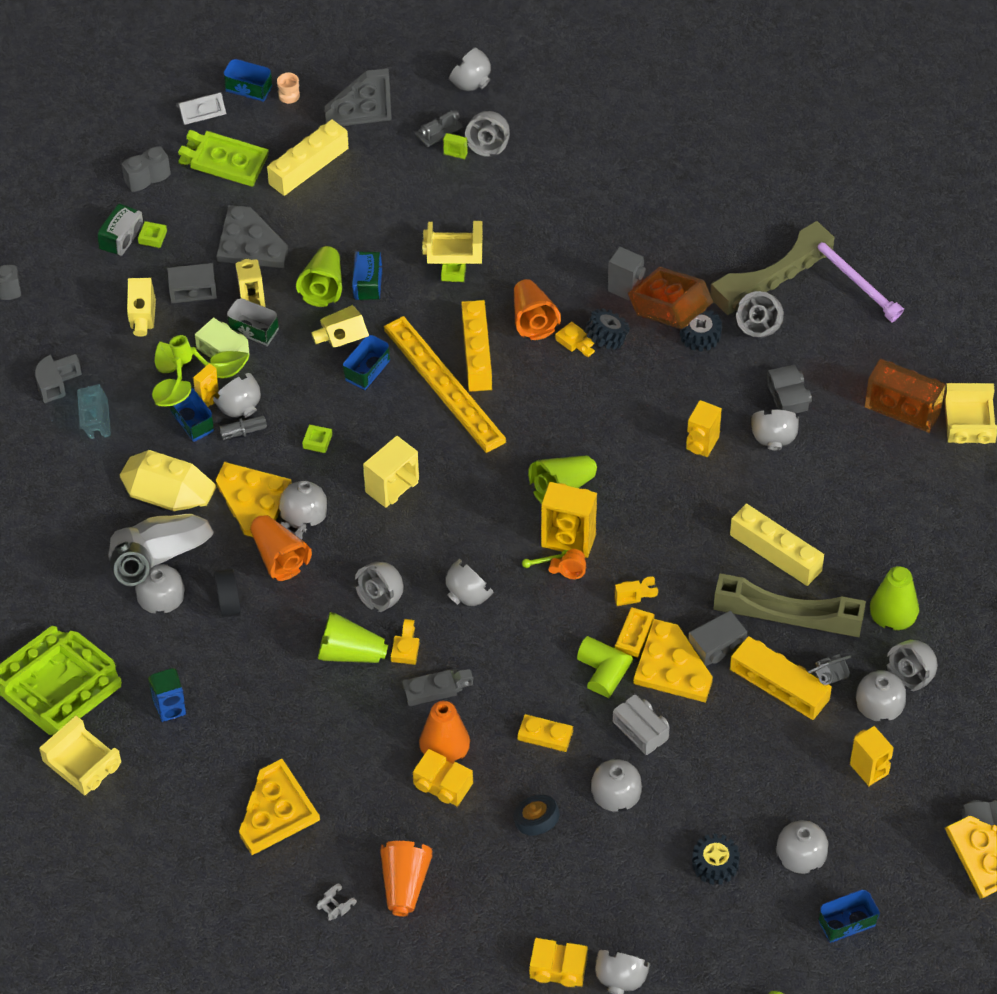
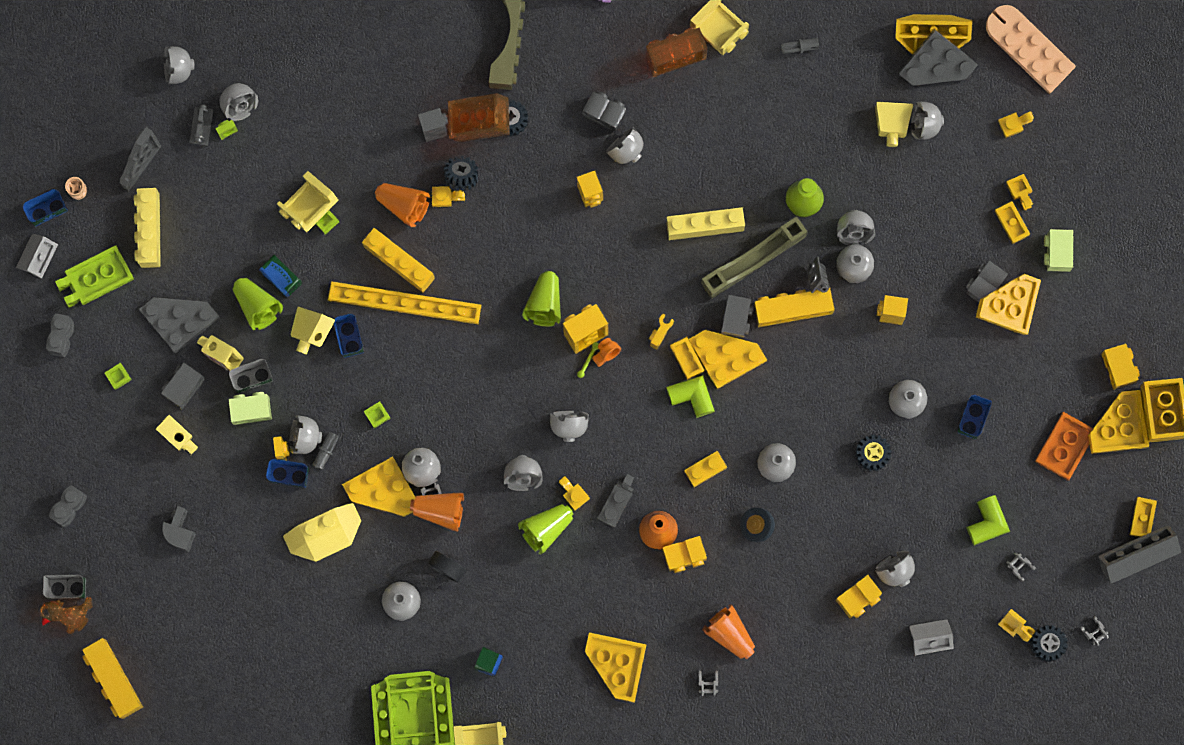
camera: 45 degrees left, 25 degrees up
(93, 411) = (229, 530): clear light blue hinge -> none
(120, 229) = (96, 393): piece -> none
(154, 541) = (372, 582): light grey piece -> none
(175, 355) = (232, 444): lime plant -> none
(391, 471) = (449, 396): light yellow container -> none
(641, 724) = (752, 412): light grey brick -> none
(759, 314) = (539, 76): light grey cylinder -> none

